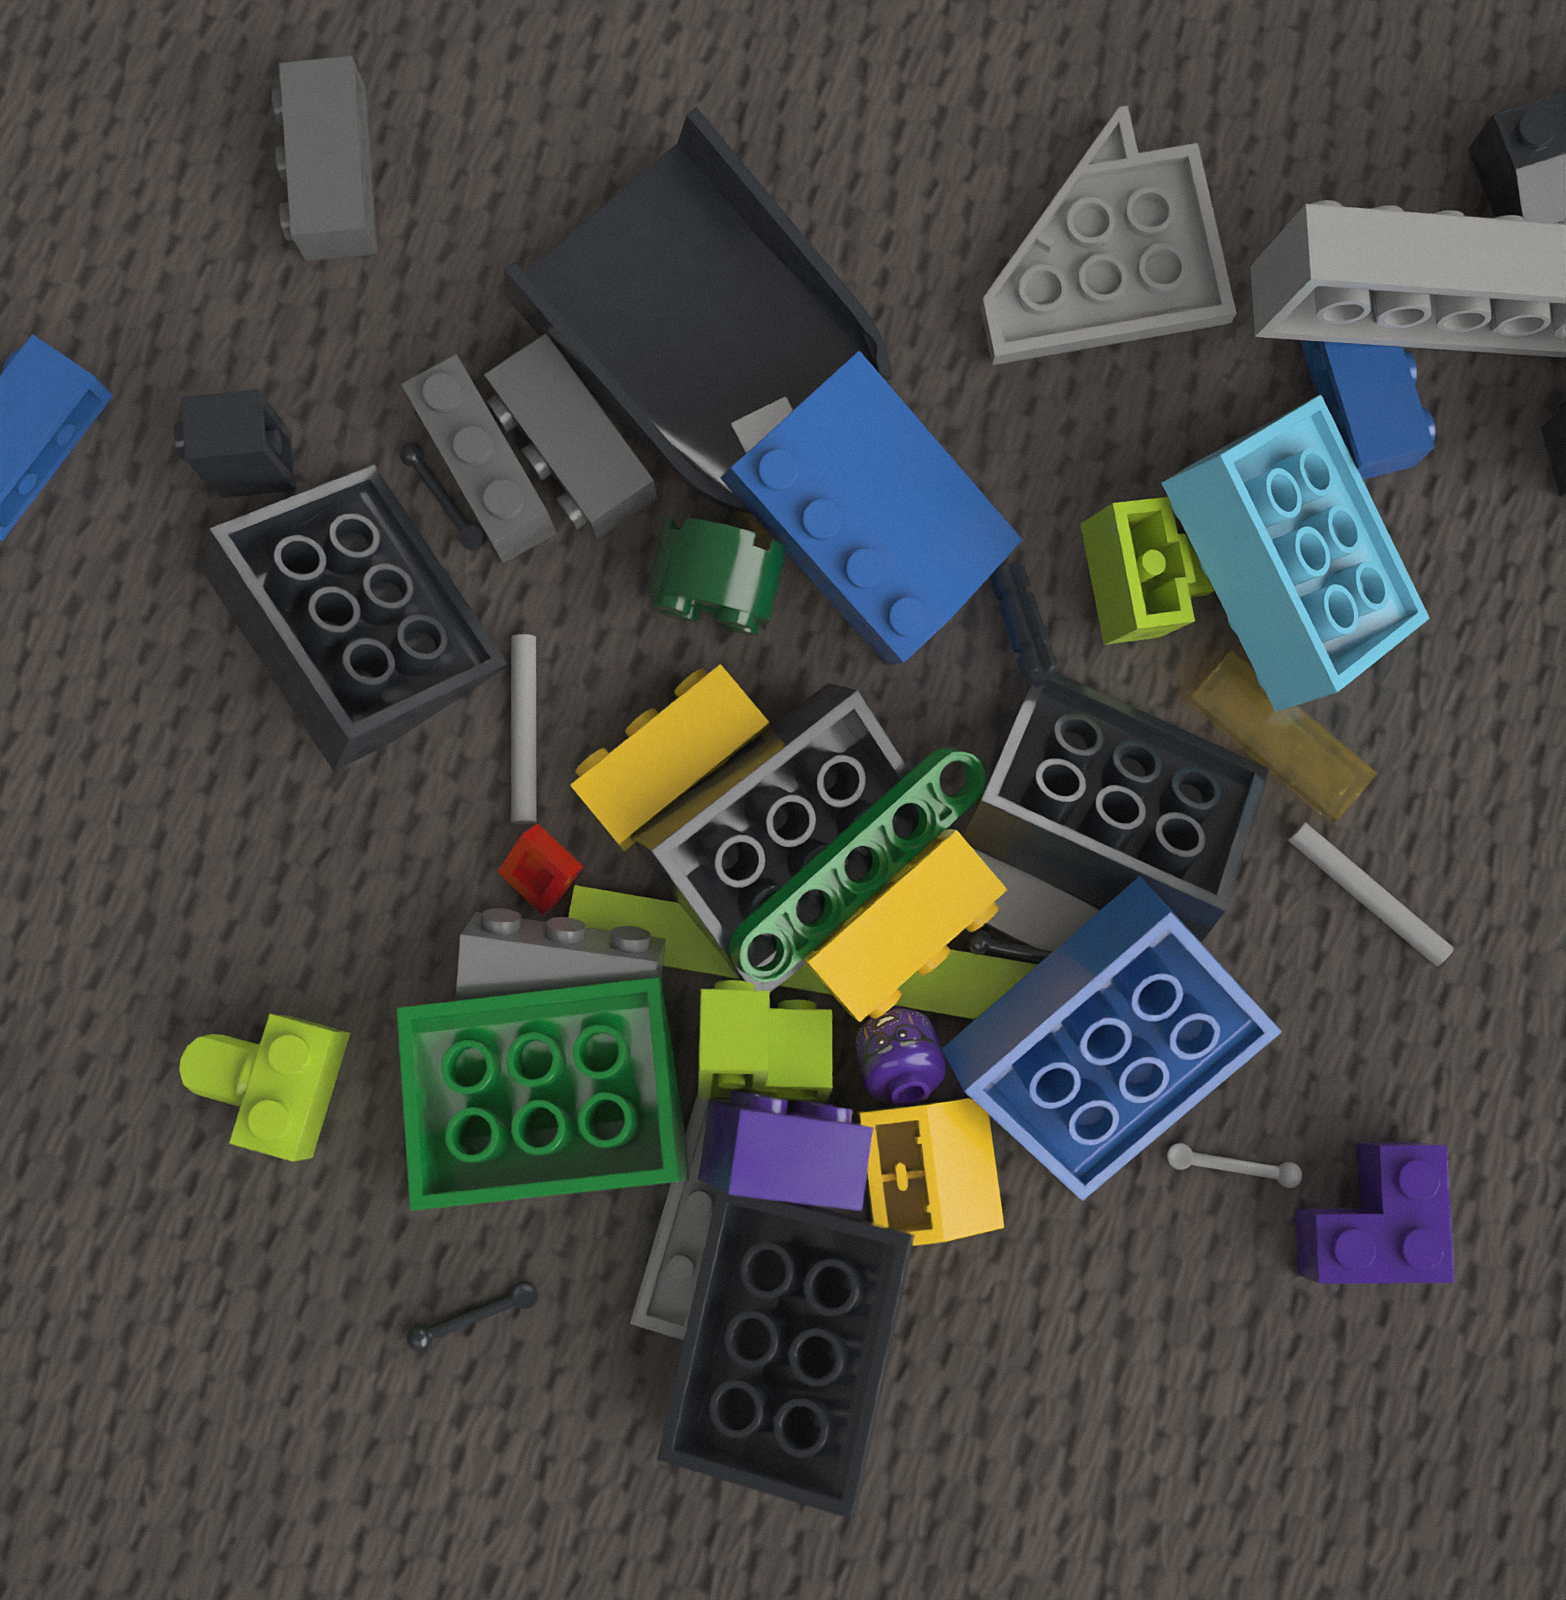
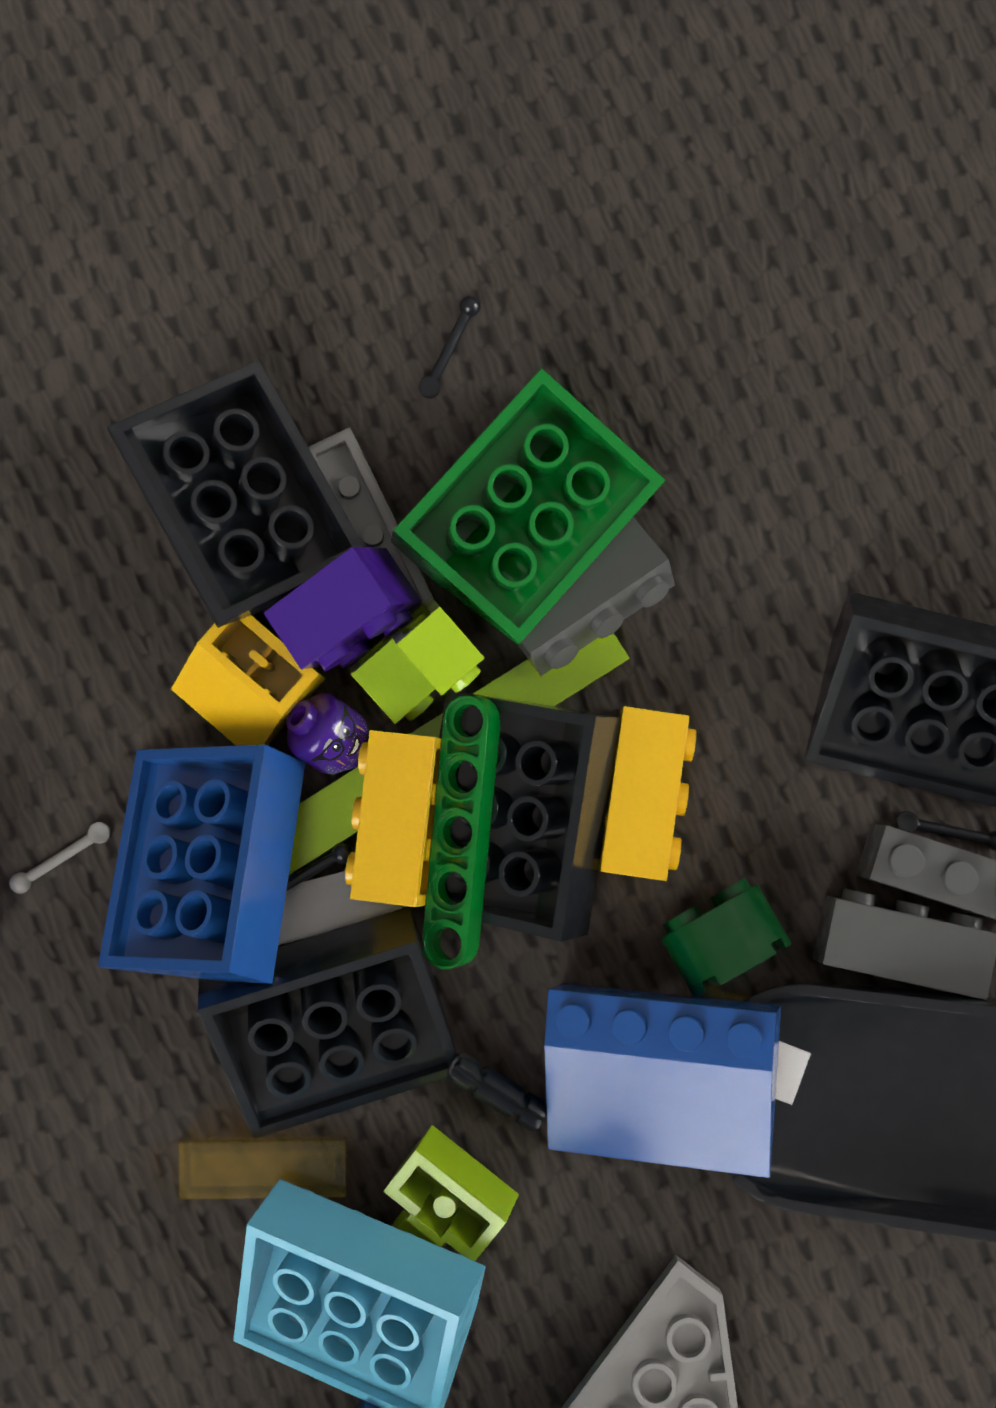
camera: 130 degrees right, 5 degrees up
(276, 1084) = (697, 372): lime brick -> none
(523, 729) = (755, 728): light grey bar -> none
(540, 869) = (660, 648): red plate -> none
(1371, 894) = (117, 1113): light grey bar -> none

